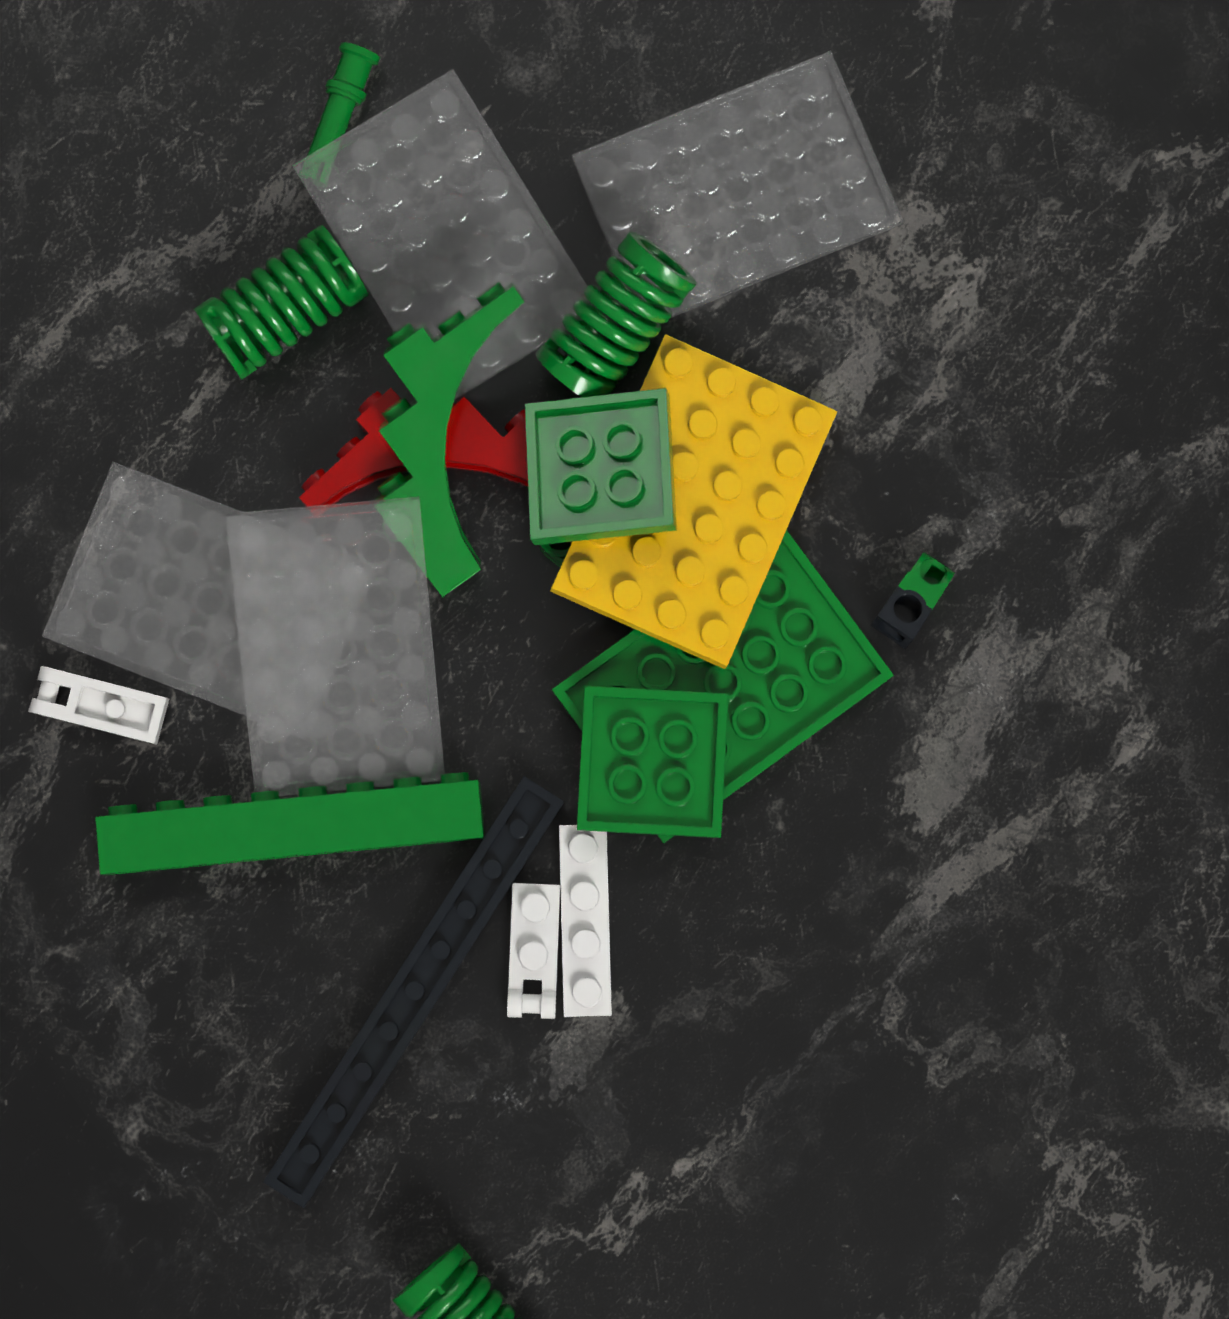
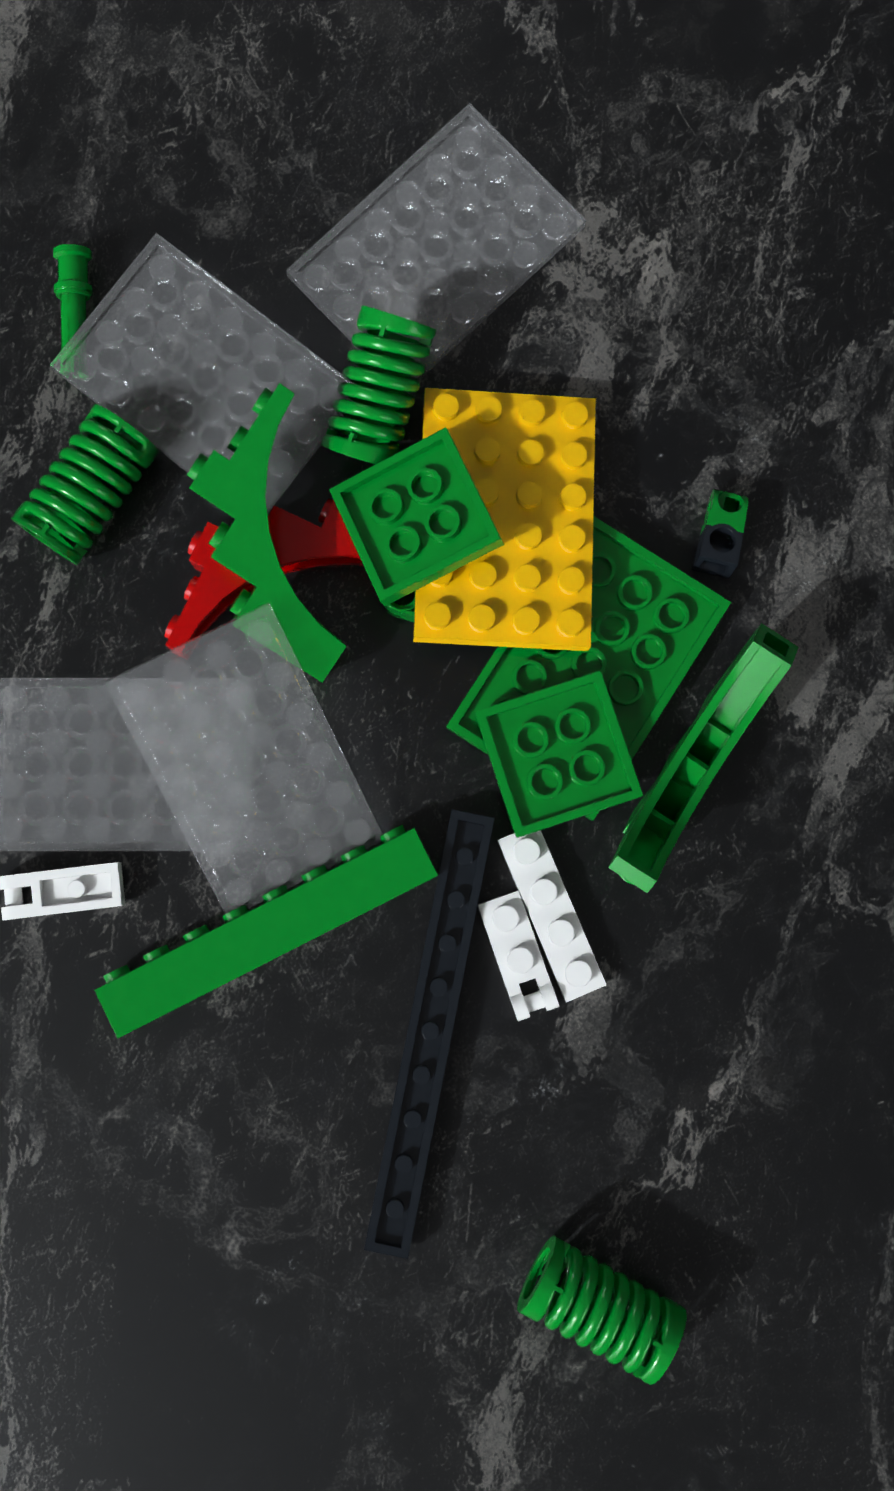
camera: 25 degrees left, 0 degrees up
(793, 820) = (699, 756): none -> green arch

